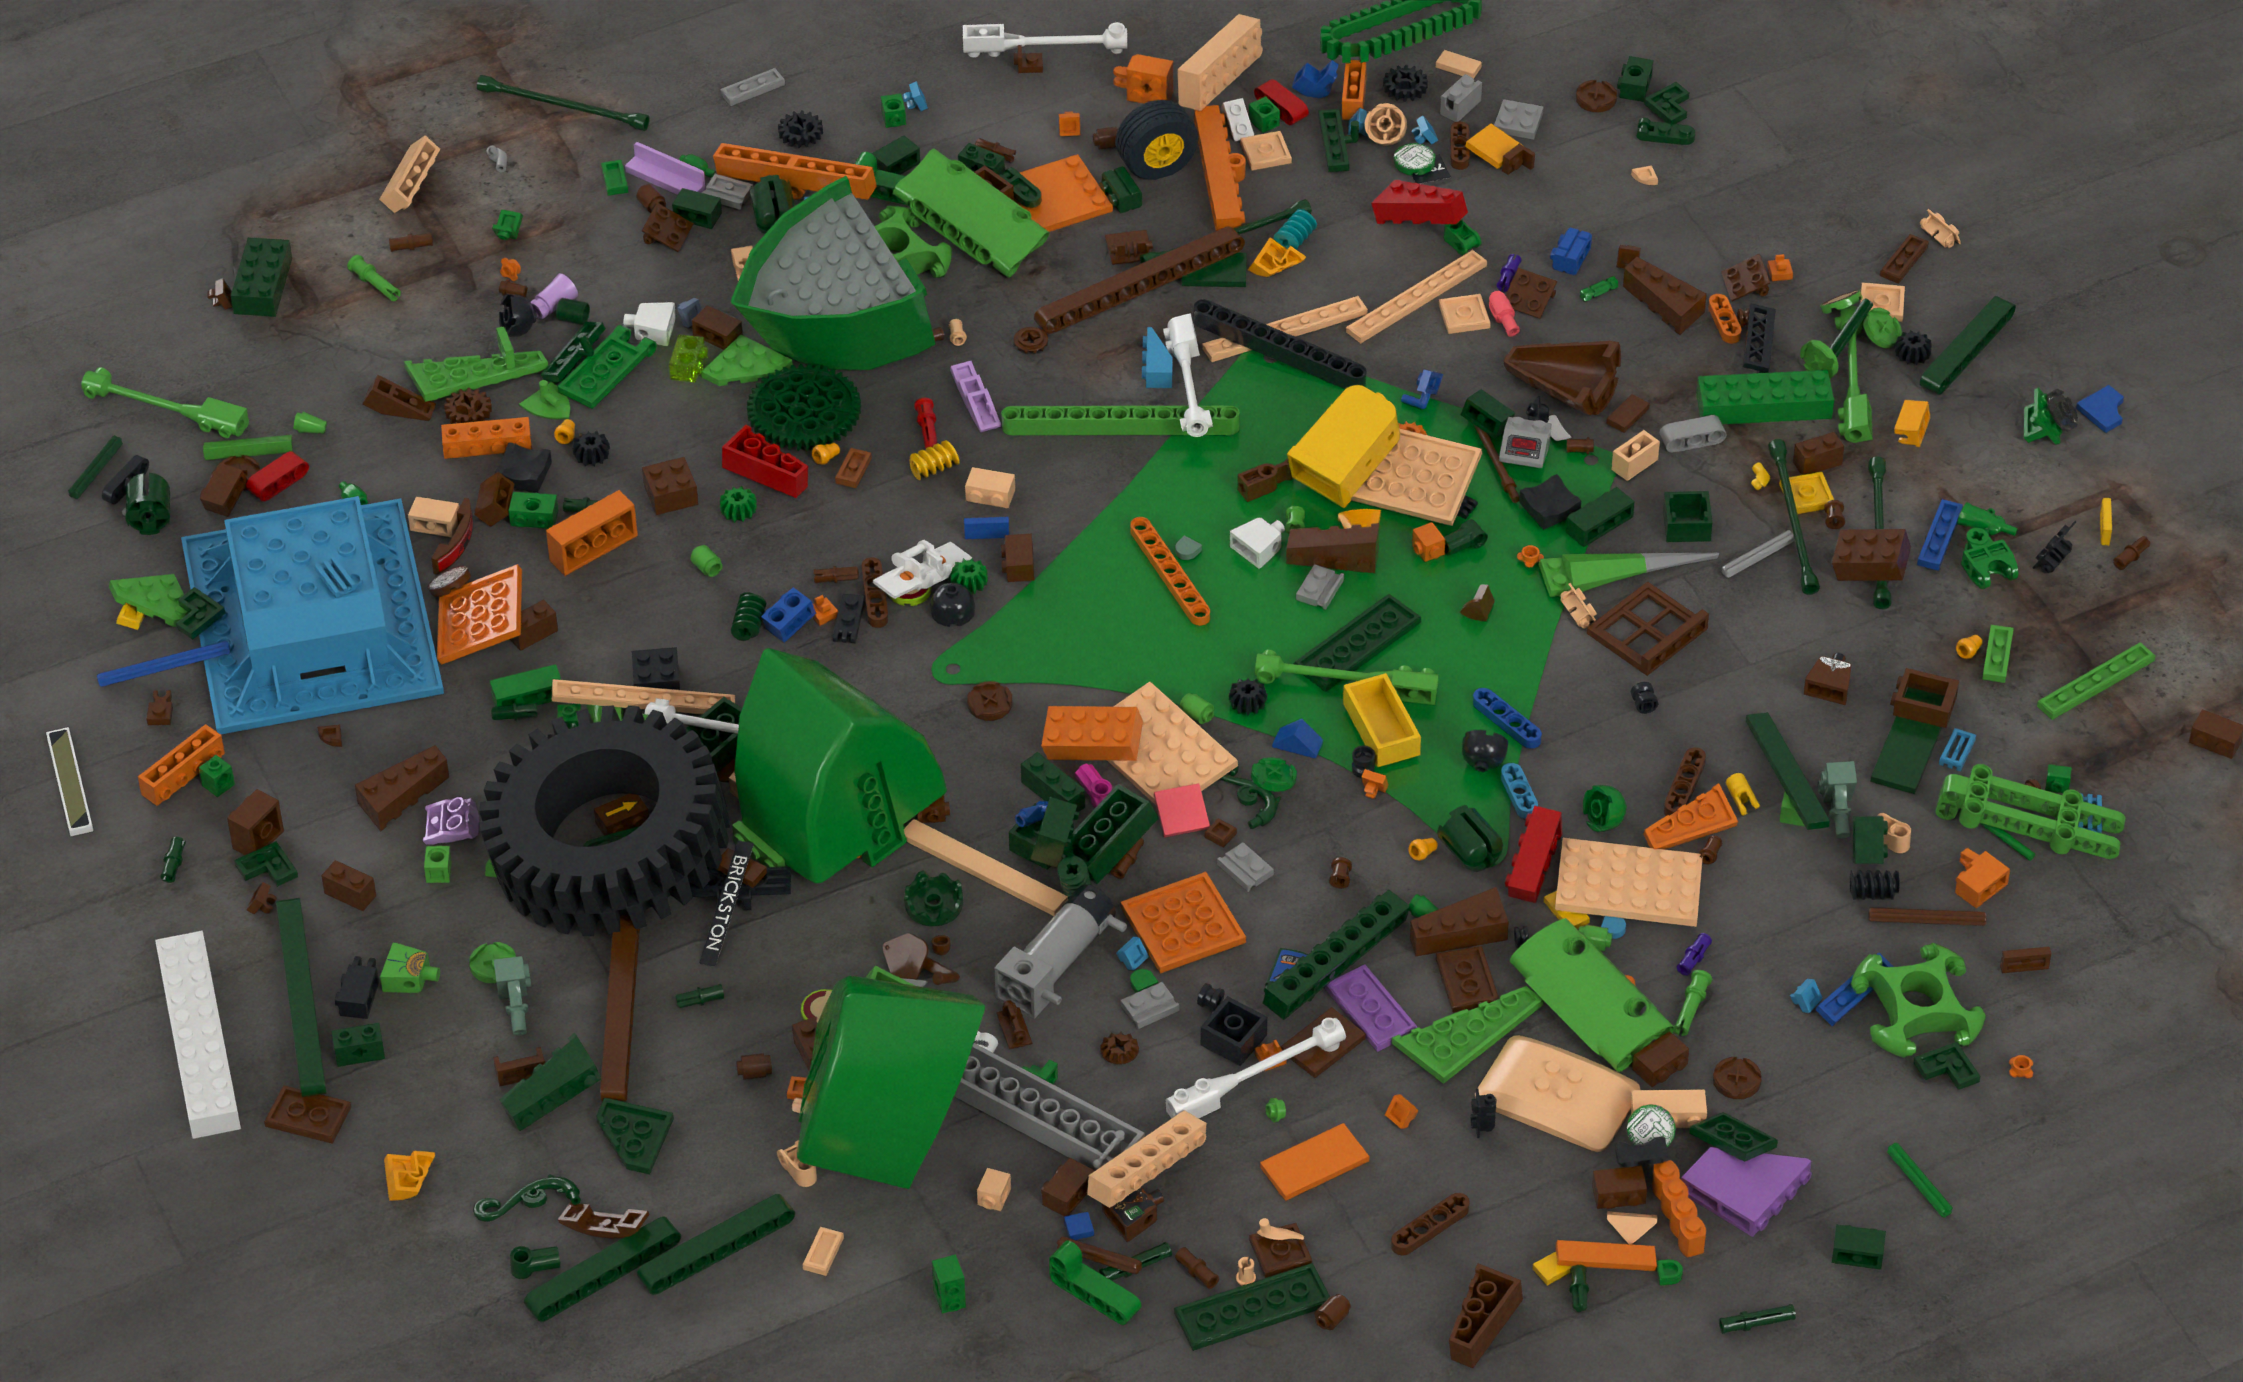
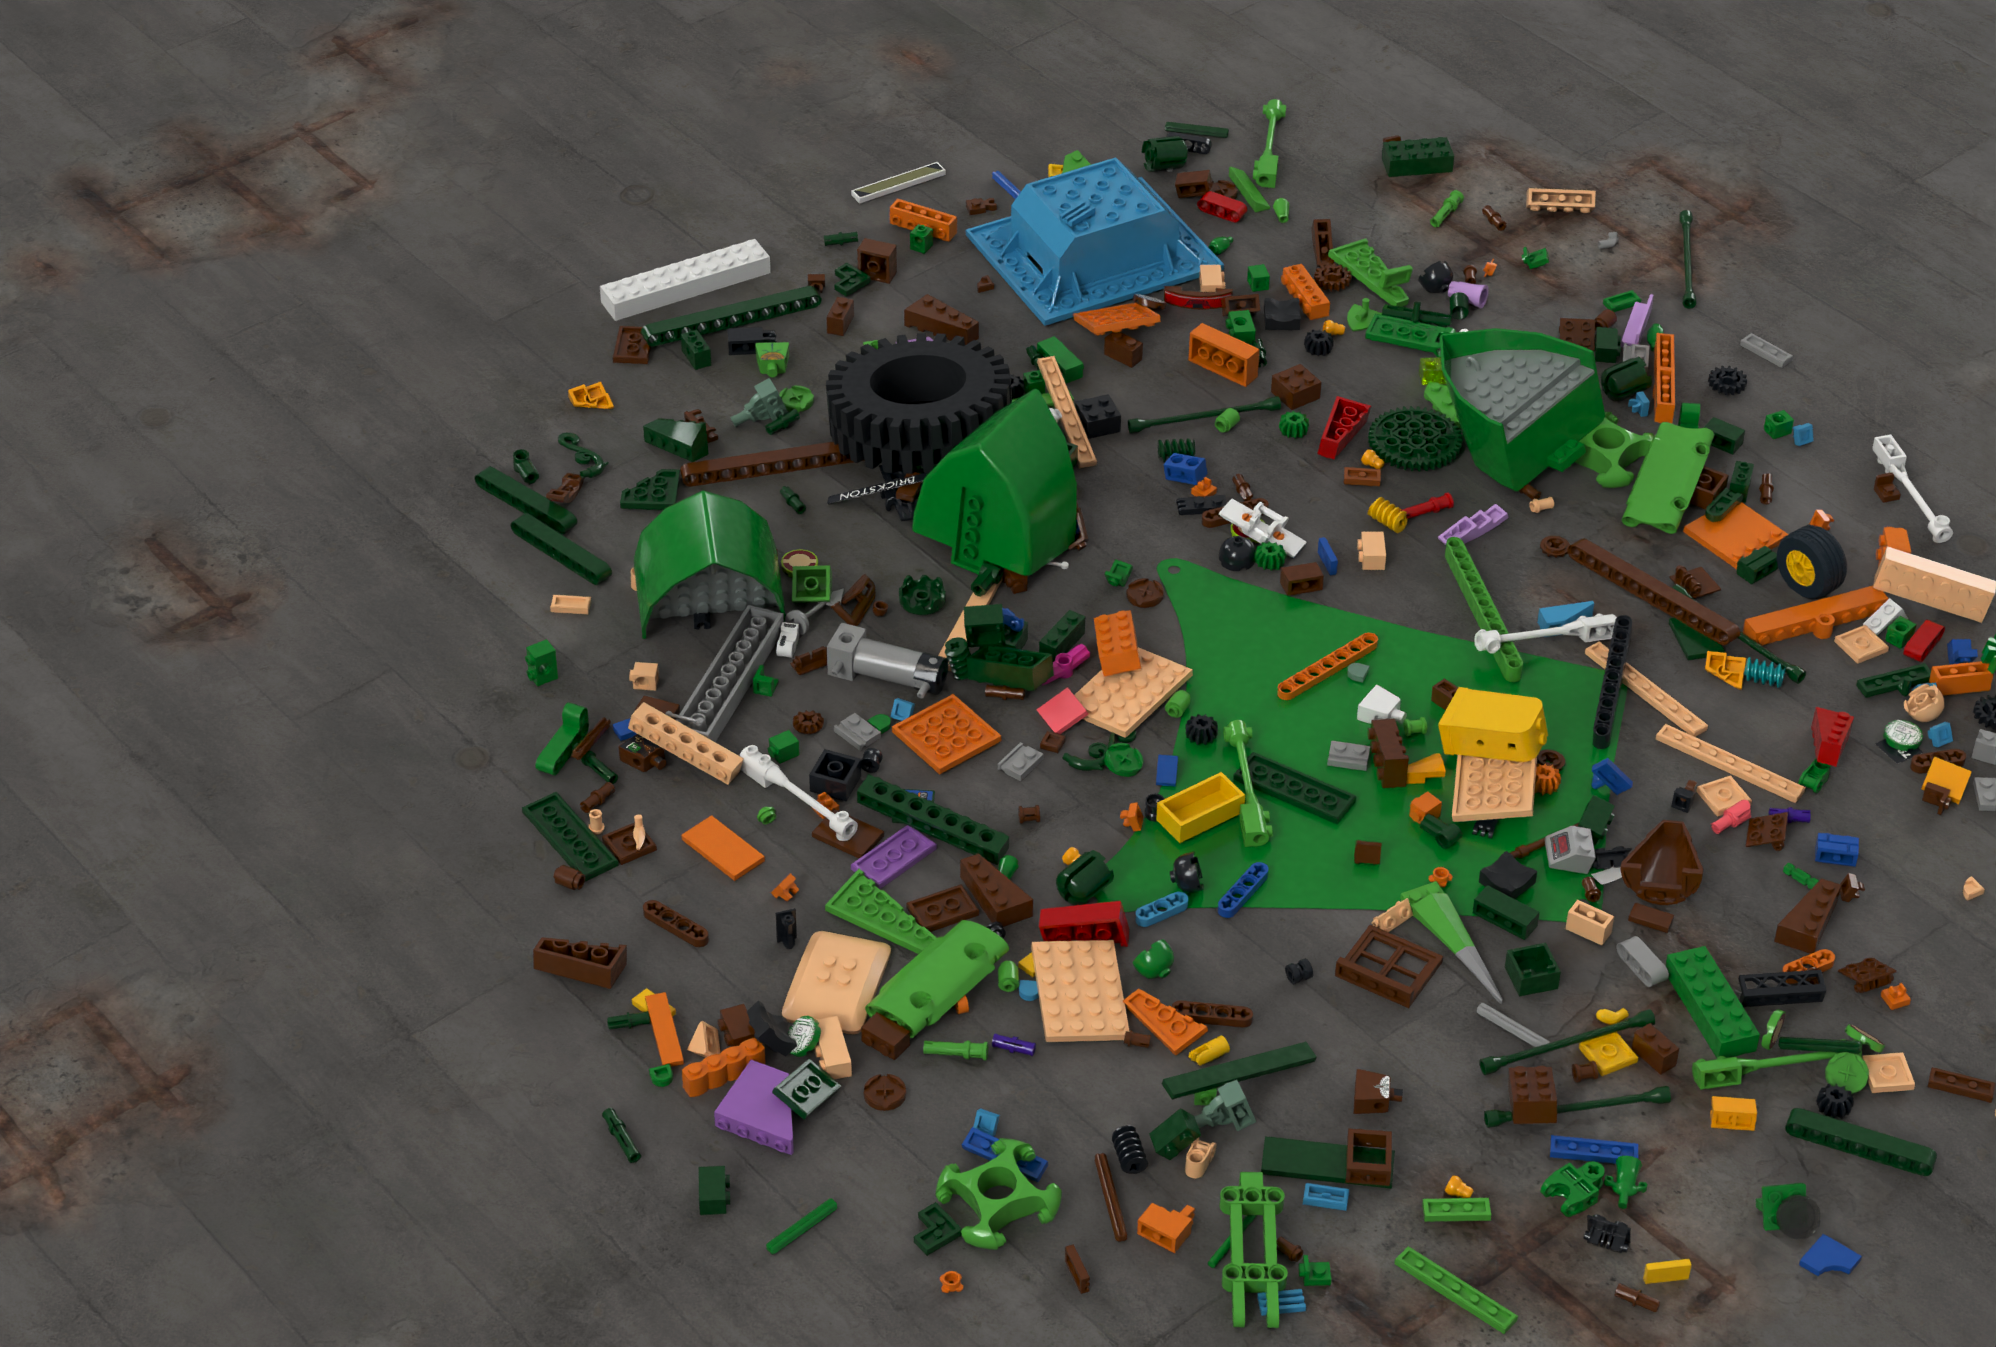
camera: 75 degrees right, 5 degrees down
(439, 474) = (1258, 278): none -> green brick
(541, 981) = (782, 421): none -> dark green pin
(688, 516) = (1137, 425): none -> dark green hose
(927, 828) = (987, 577): none -> dark green piece
(953, 714) = (1118, 573): none -> green bracket
(1162, 1074) = (783, 747): none -> green brick
(1465, 342) = (1684, 798): none -> black piece

